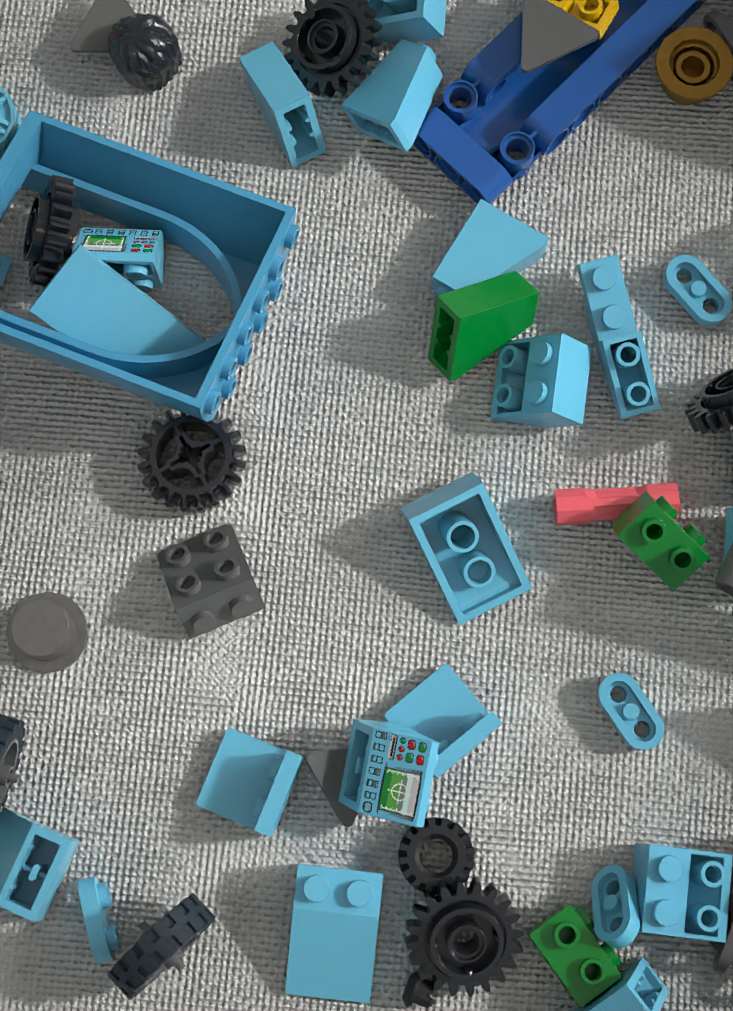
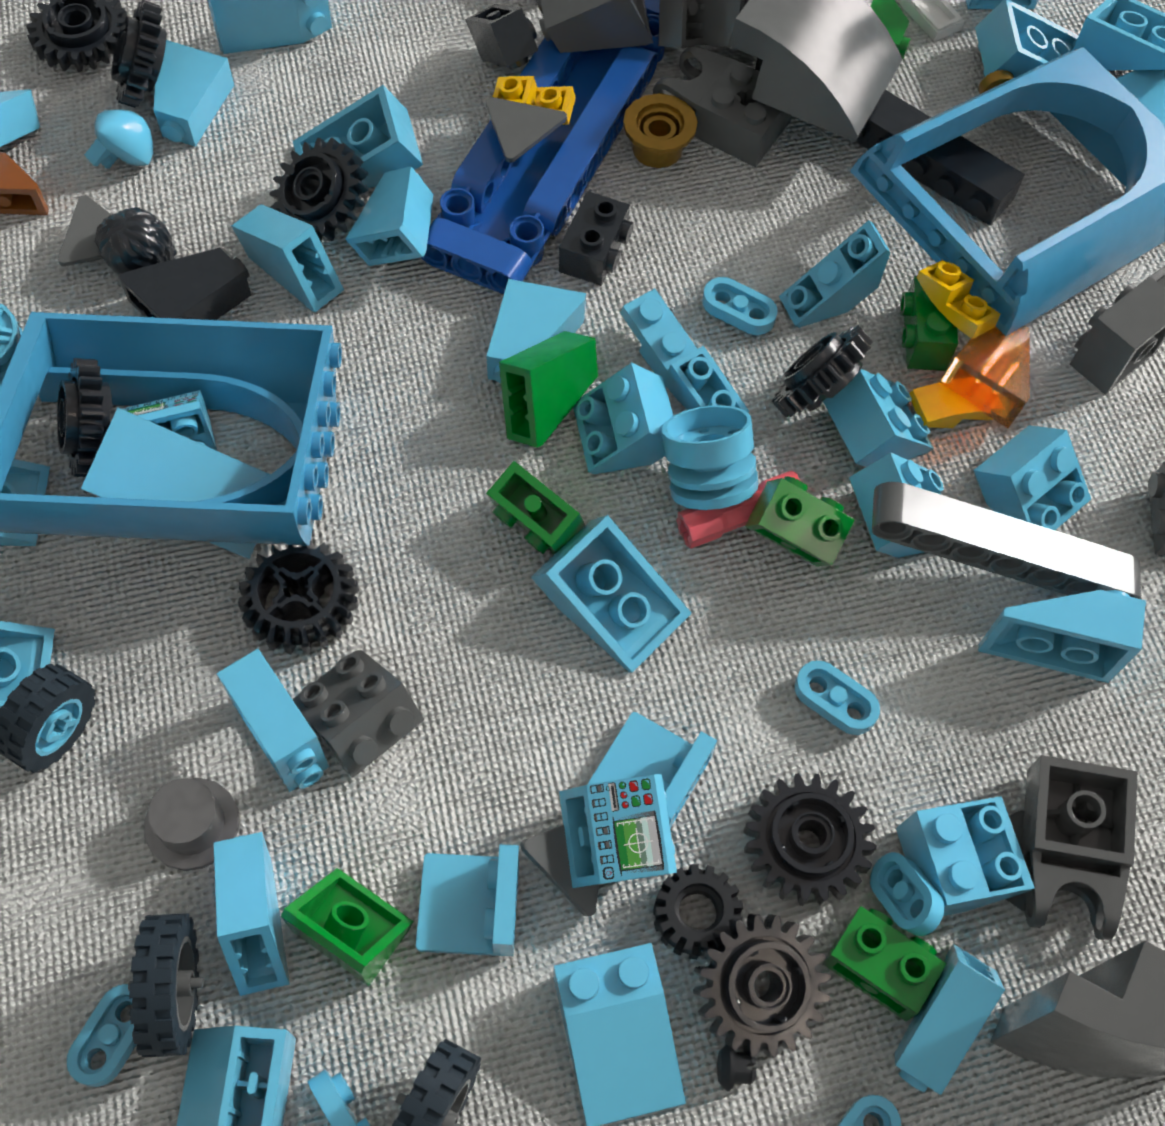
camera: 25 degrees left, 15 degrees down
(71, 728) = (249, 914): none -> medium azure slope
(136, 574) = (274, 720): none -> medium azure window
(147, 765) = (348, 924): none -> green slope
(180, 114) = (188, 287): none -> black slope
(424, 447) = (534, 508): none -> green brick
(580, 836) = (804, 867): none -> black gear
(583, 173) = (595, 238): none -> black brick
(601, 451) = (710, 457): none -> medium azure wheel

